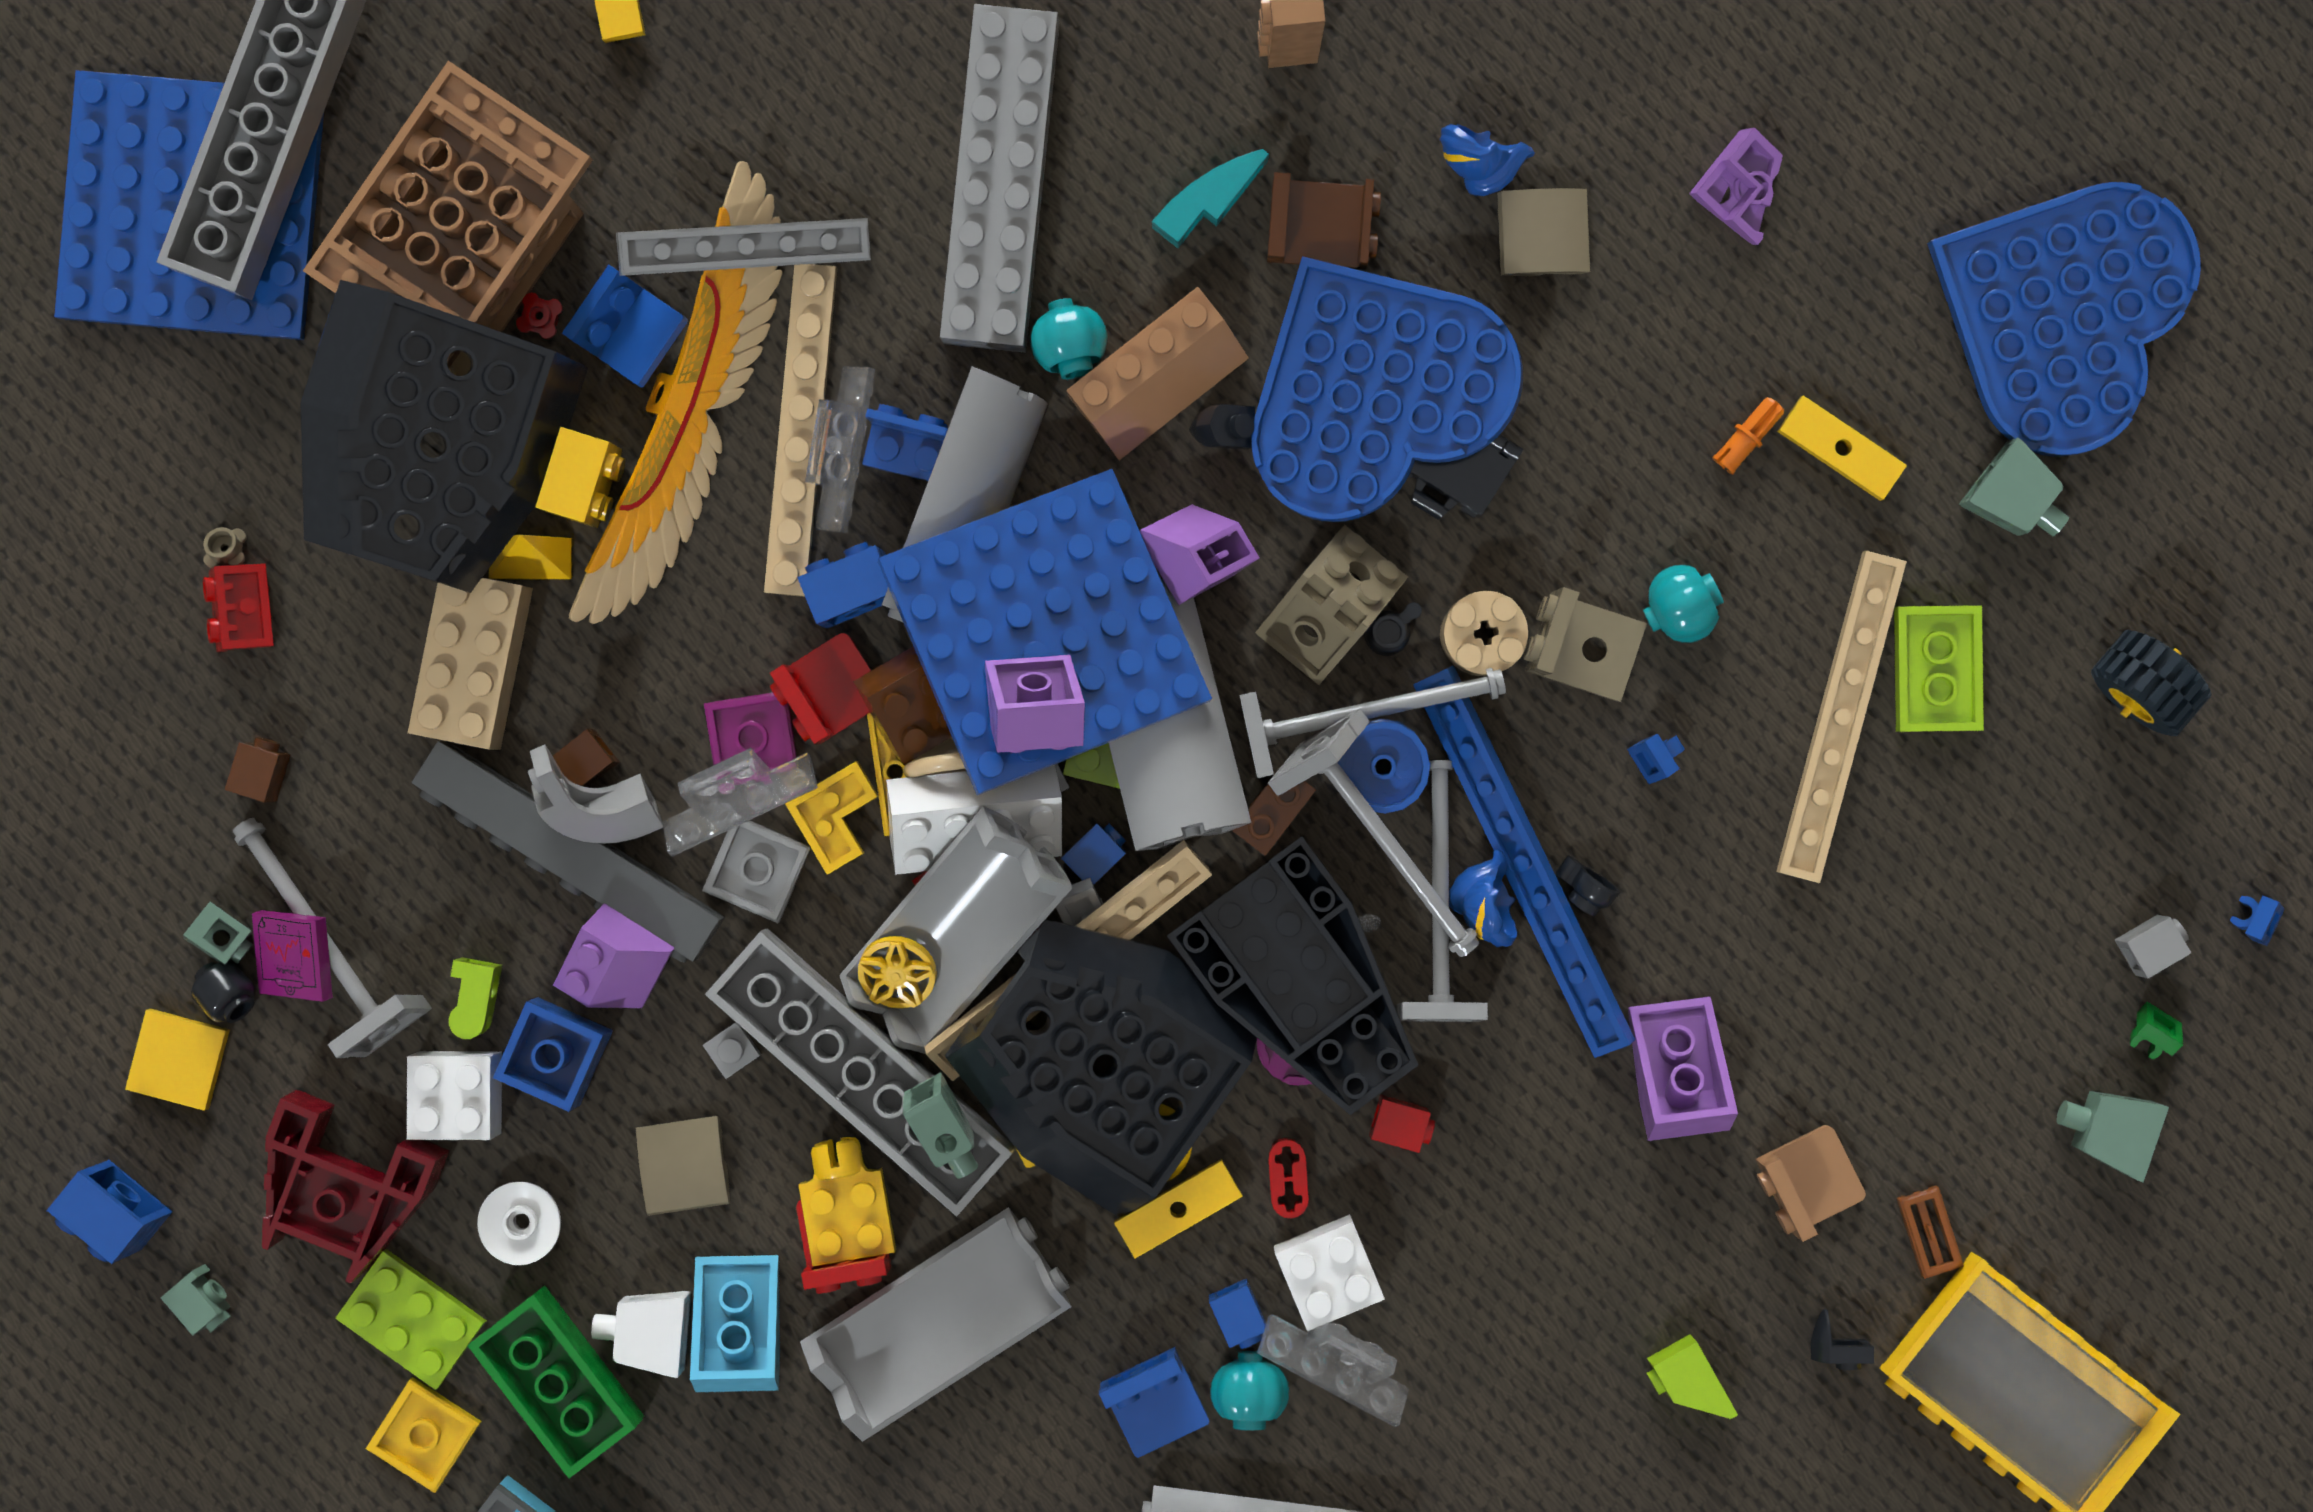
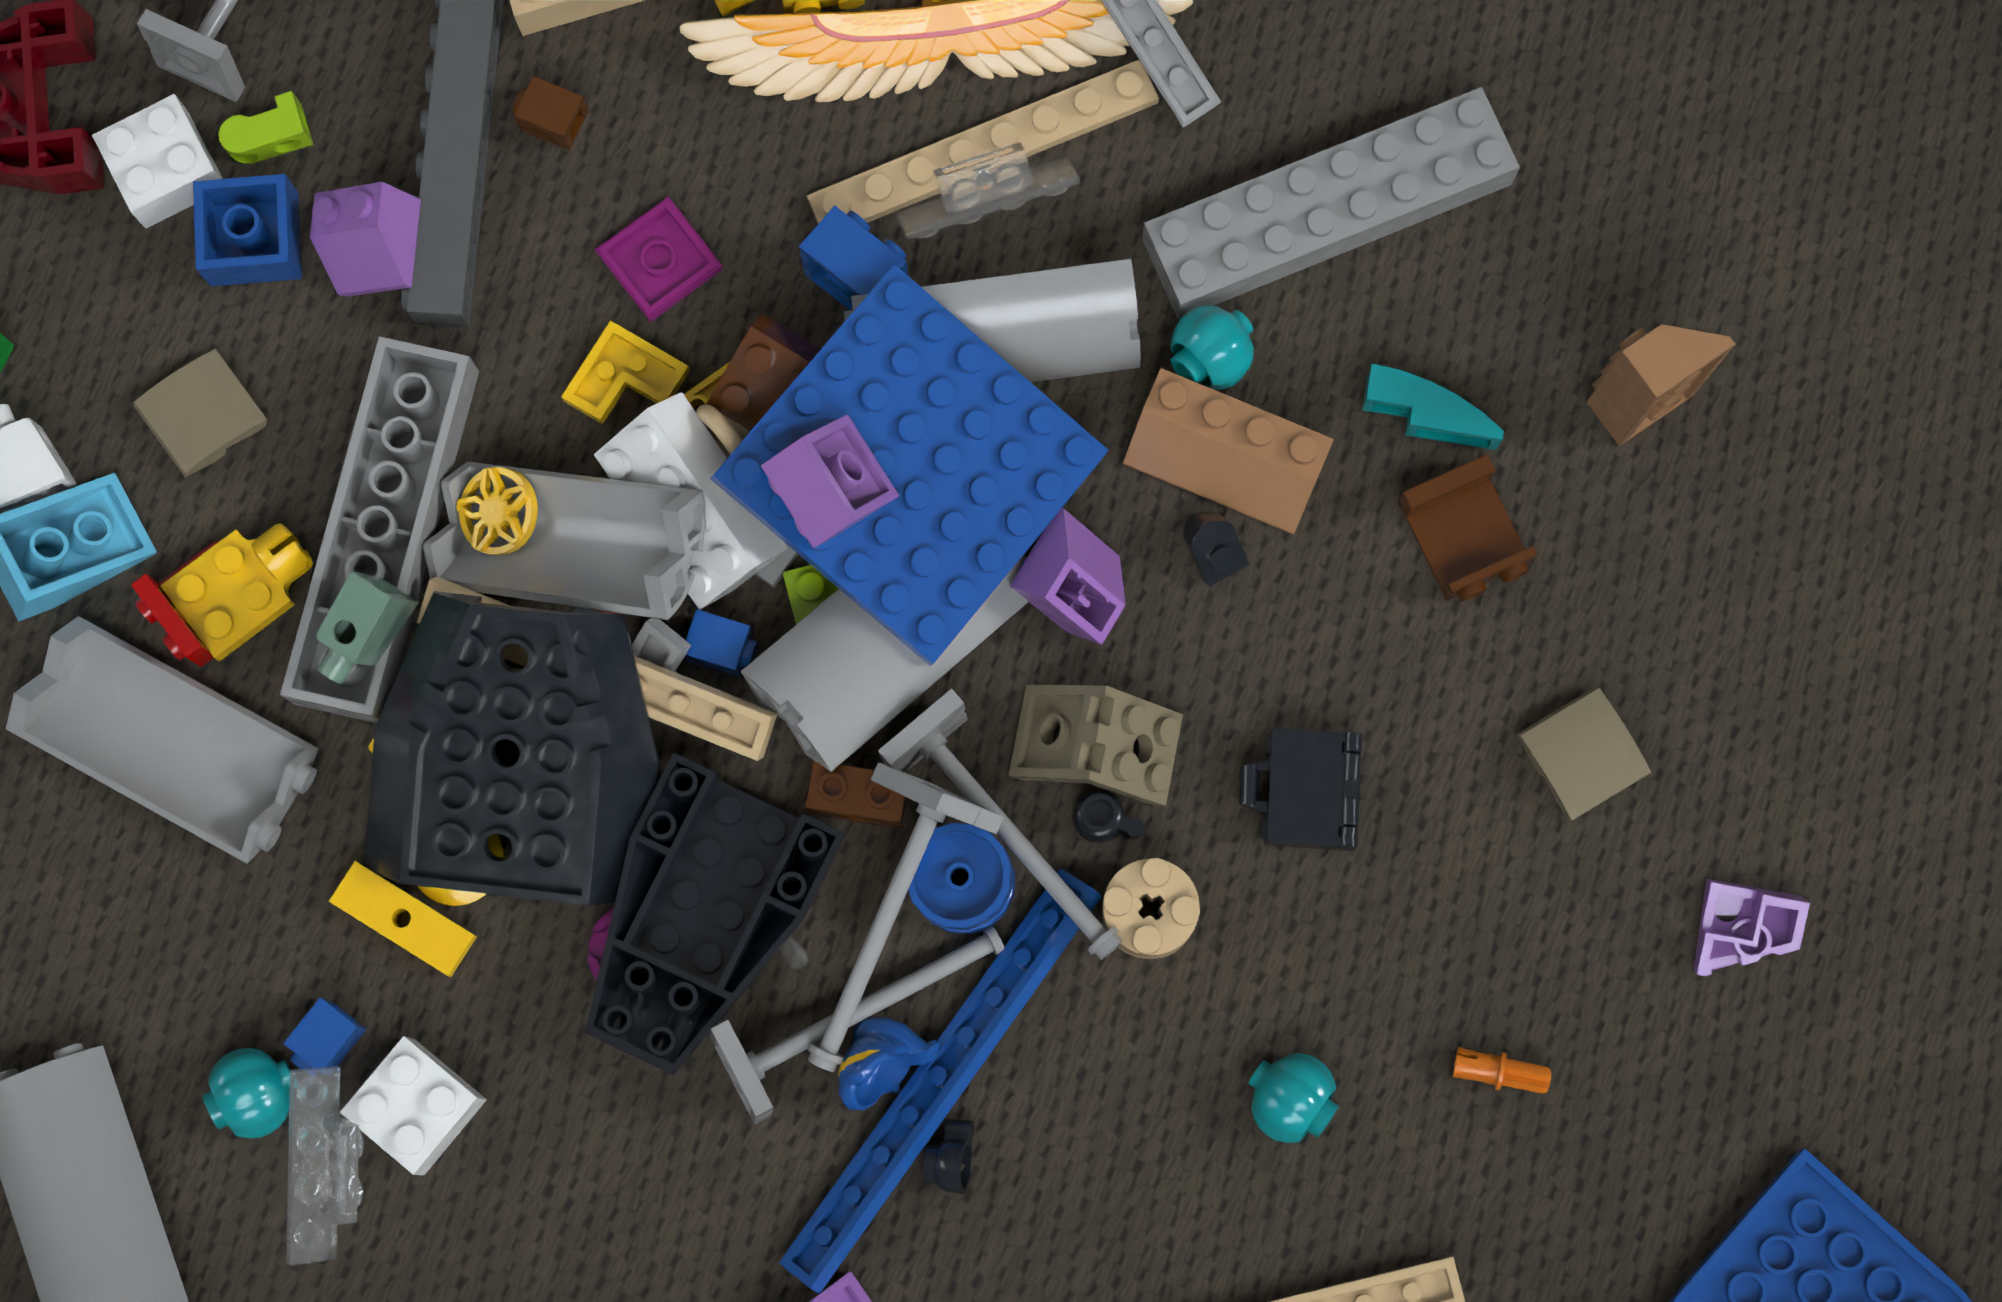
camera: 65 degrees right, 10 degrees down
(499, 1228) = (47, 275): white dish -> none
(591, 814) = (500, 139): light grey arch -> none
(731, 1050) = (338, 400): light grey plate -> none
(733, 795) = (593, 266): clear bracket -> none
(757, 869) = (532, 331): light grey tile -> none
(823, 689) = (736, 294): red bracket -> none
(903, 443) = (1023, 239): blue bracket -> none
(1154, 1402) = (190, 1002): blue bracket -> none
(1278, 1179) = (497, 1024): red beam -> none
(1371, 383) = (1339, 662): blue plate -> none
(1401, 1124) = (605, 1098): red brick -> none
(1481, 161) = (1617, 651): blue hair -> none
(1560, 638) = (1189, 990): dark tan bracket -> none
(1656, 757) = (1121, 1155): blue tile -> none
(1864, 461) = (1546, 1142): yellow tile -> none

